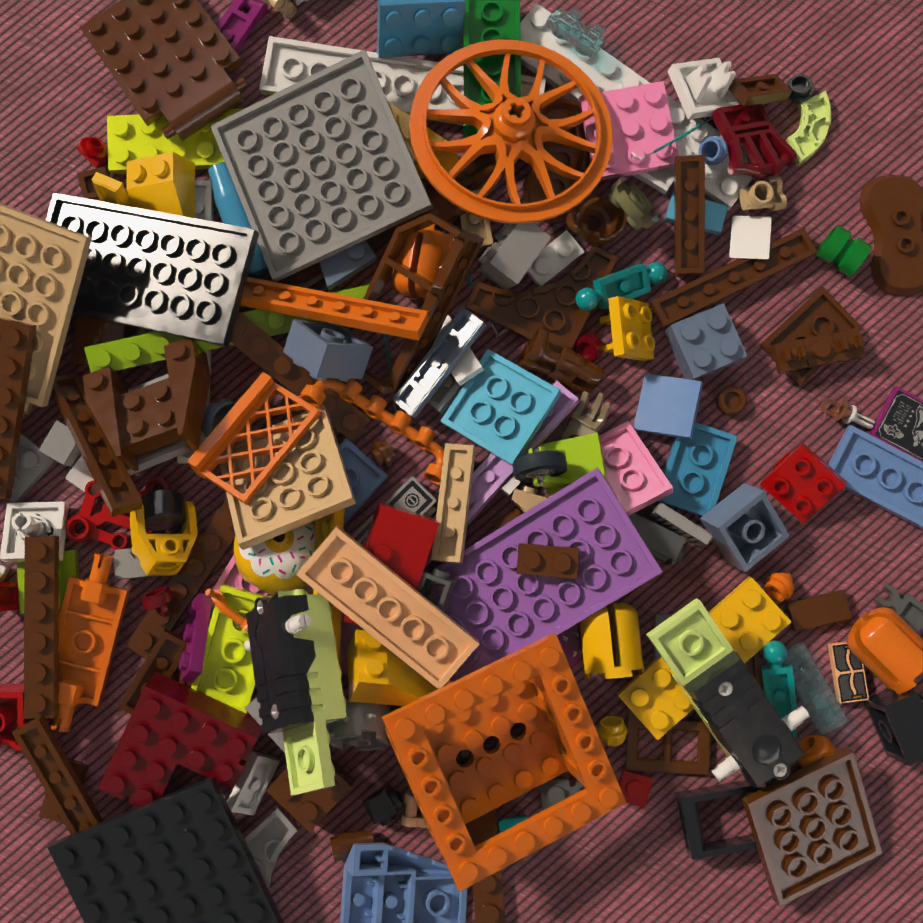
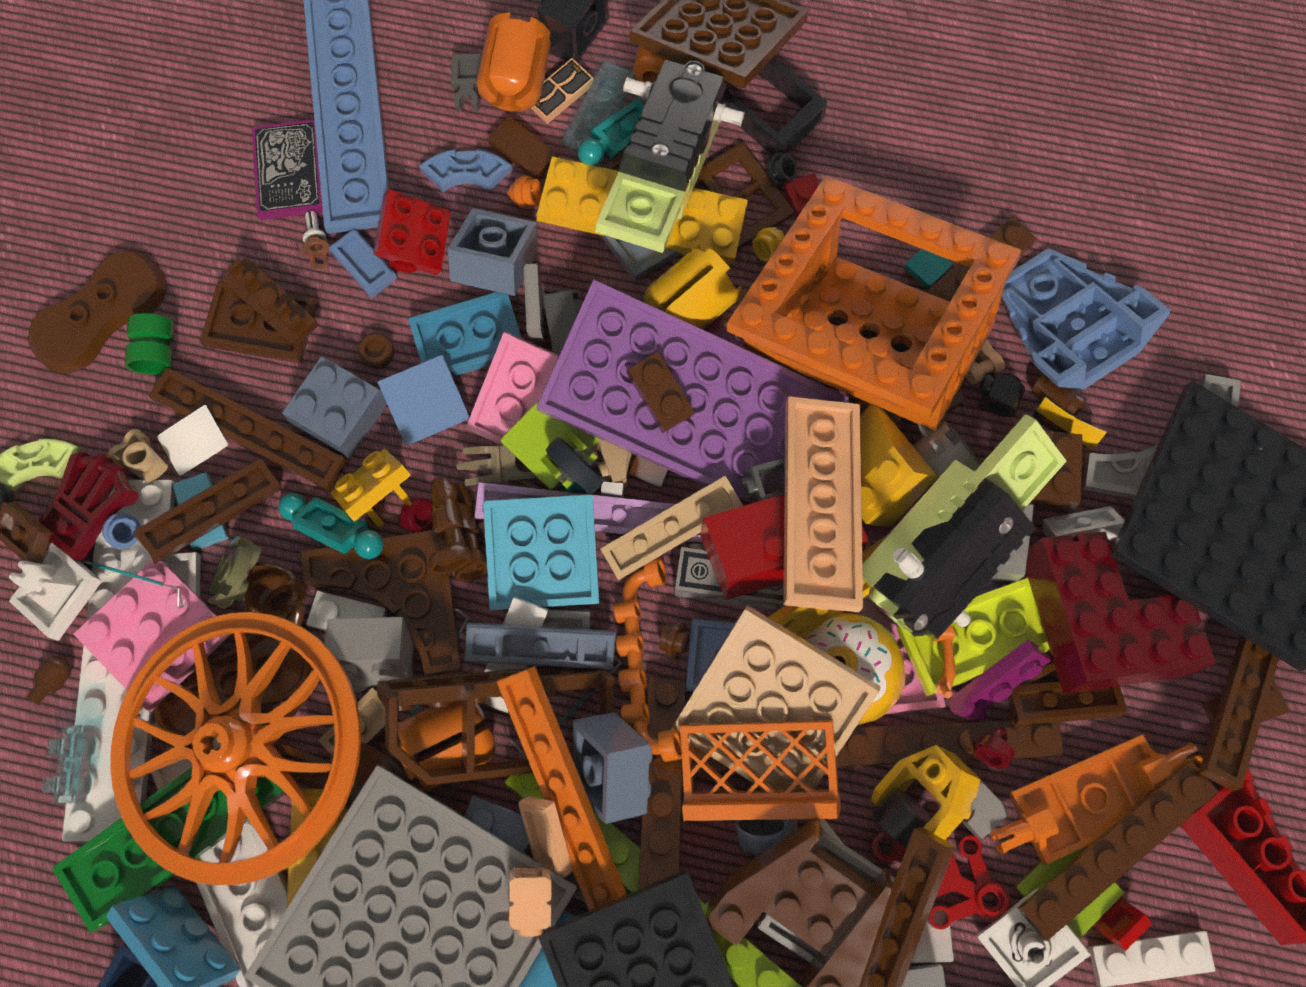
camera: 125 degrees left, 10 degrees down
(280, 239) = (529, 900): none -> light nougat brick
(316, 281) = (545, 834): none -> light nougat tile
(327, 832) = (1061, 421): none -> yellow sticker
(557, 790) = (862, 250): dark grey plate -> none
(648, 53) = (49, 677): none -> reddish brown cylinder
(665, 786) = (781, 168): none -> black plate
(814, 434) = (358, 260): none -> medium blue tile
(832, 559) = (465, 167): none -> medium blue tile

